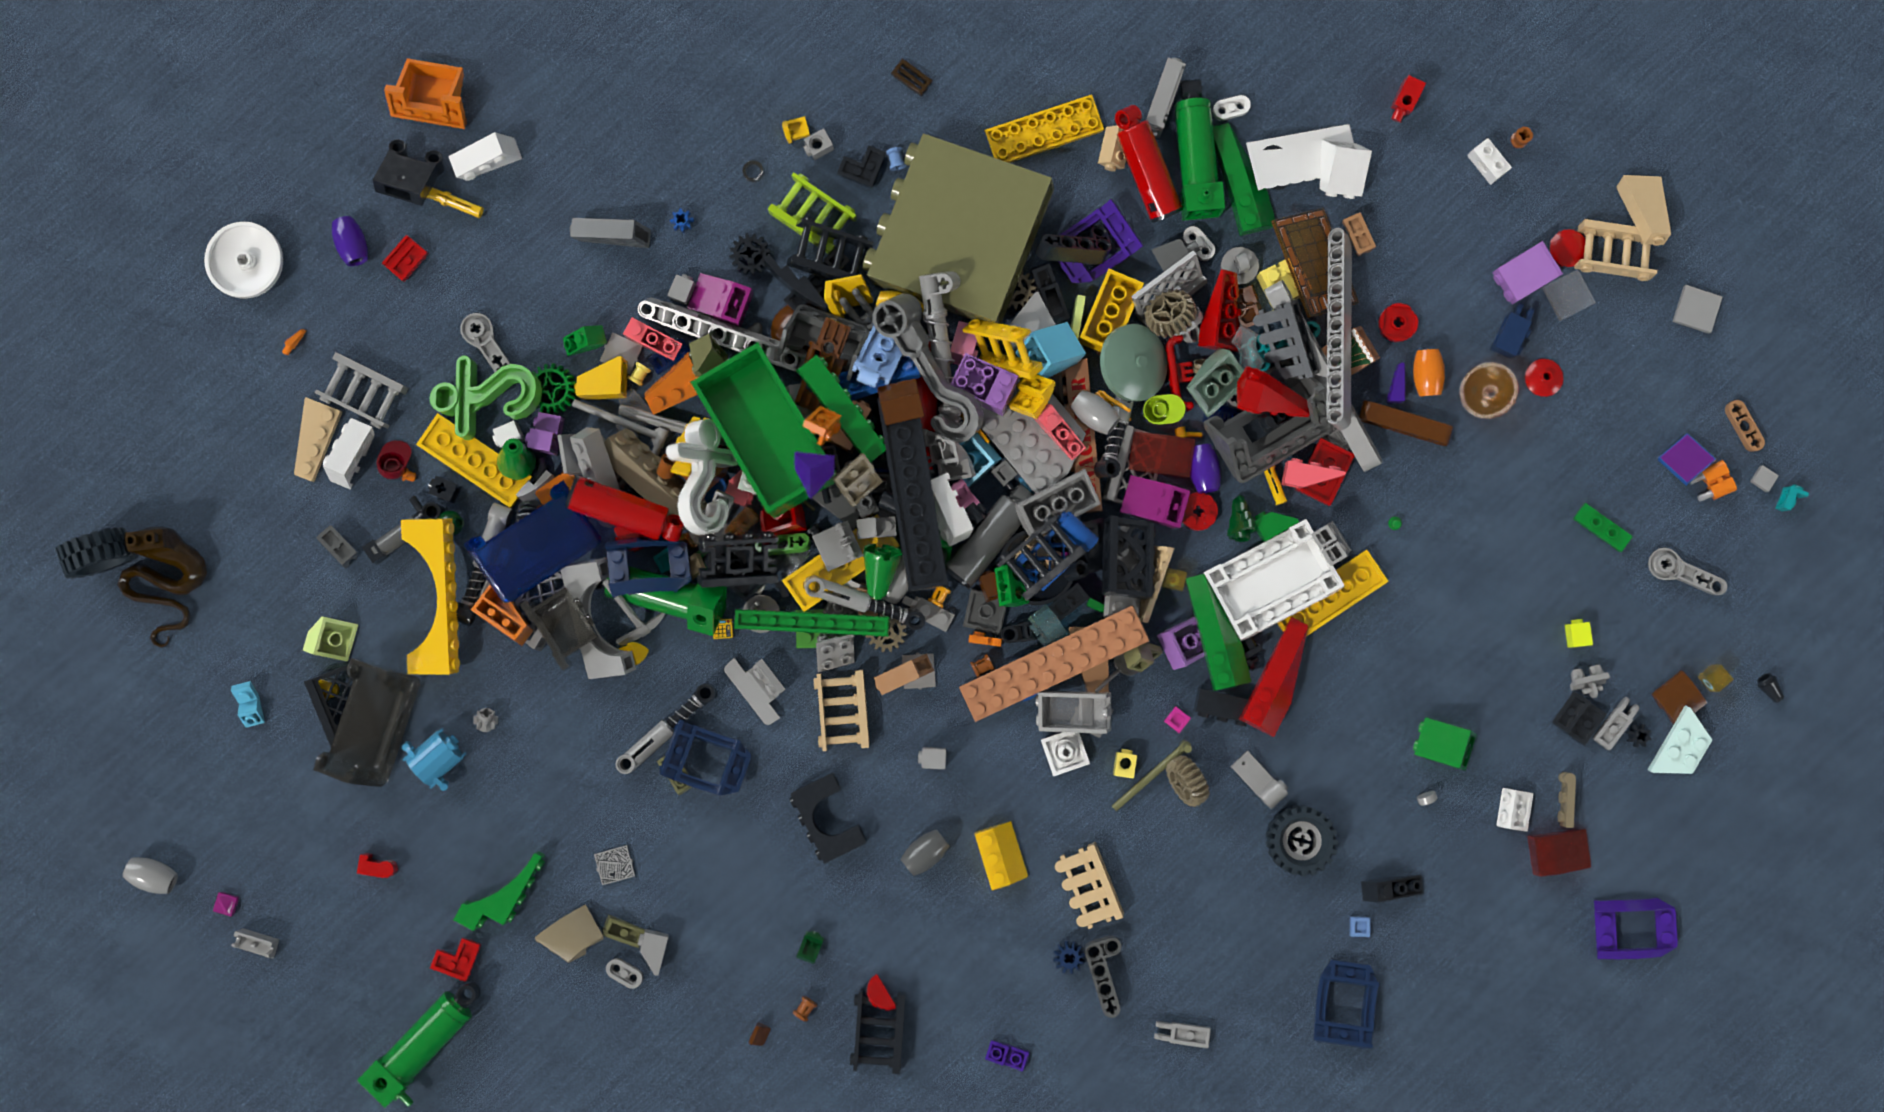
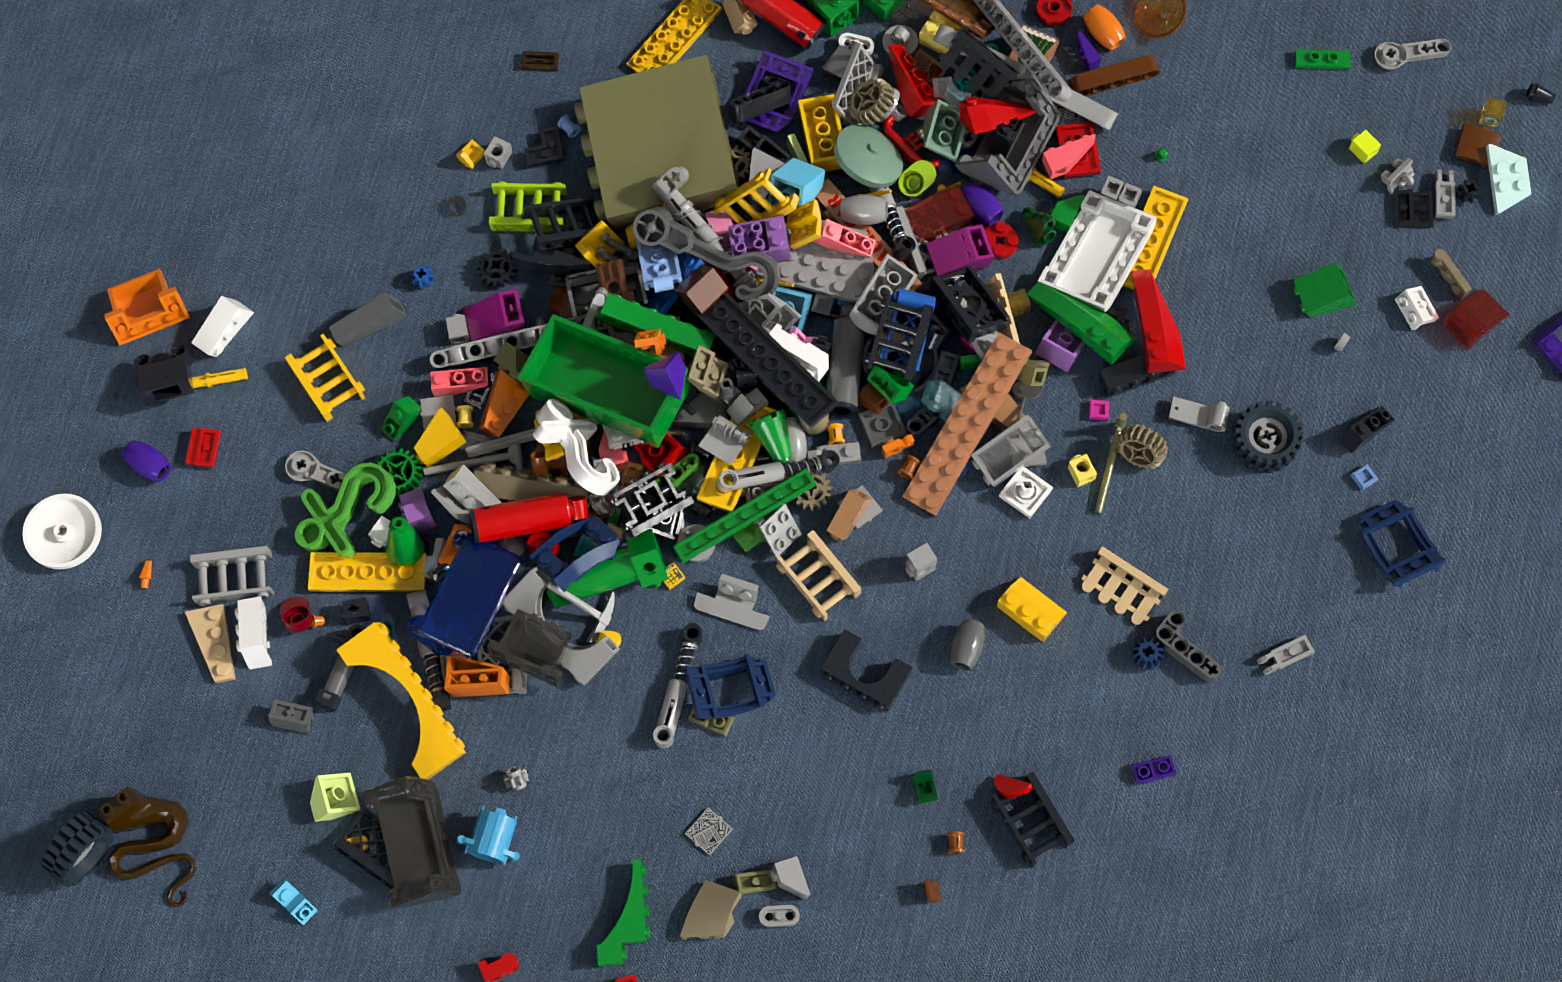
camera: 35 degrees left, 15 degrees down
(527, 252) = (307, 378): none -> yellow fence
(798, 358) = (594, 309): none -> light grey hinge

